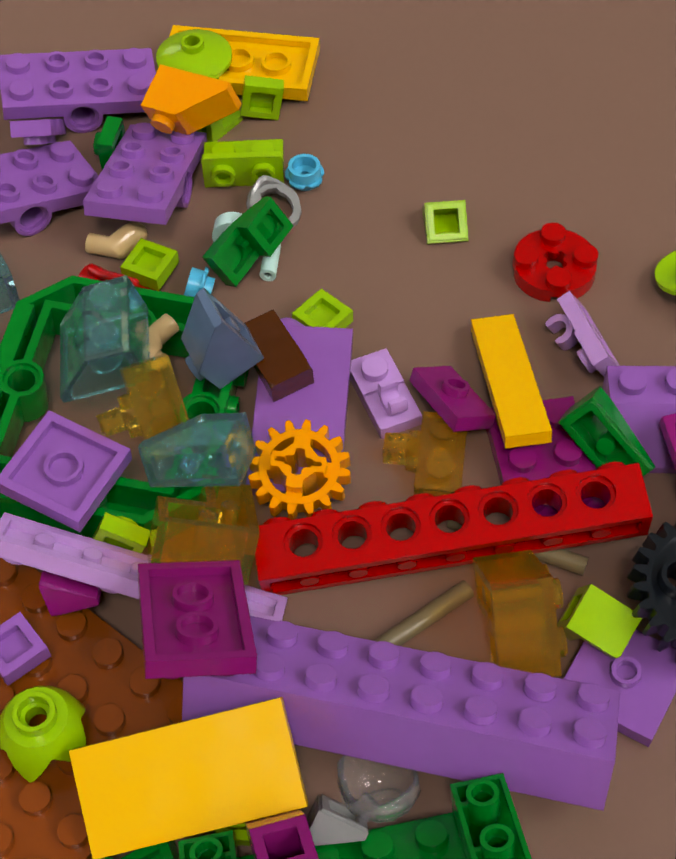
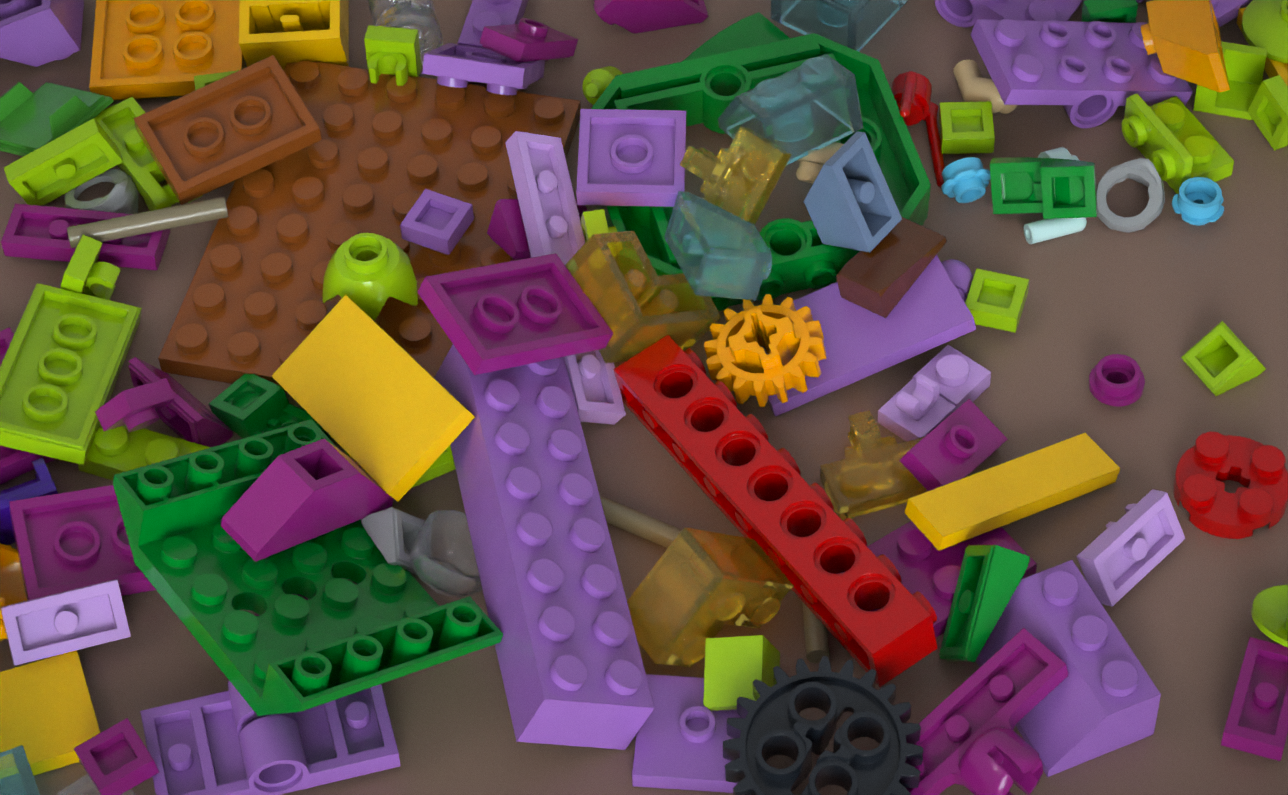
camera: 65 degrees right, 5 degrees down
(433, 283) = (1116, 380): none -> magenta plate

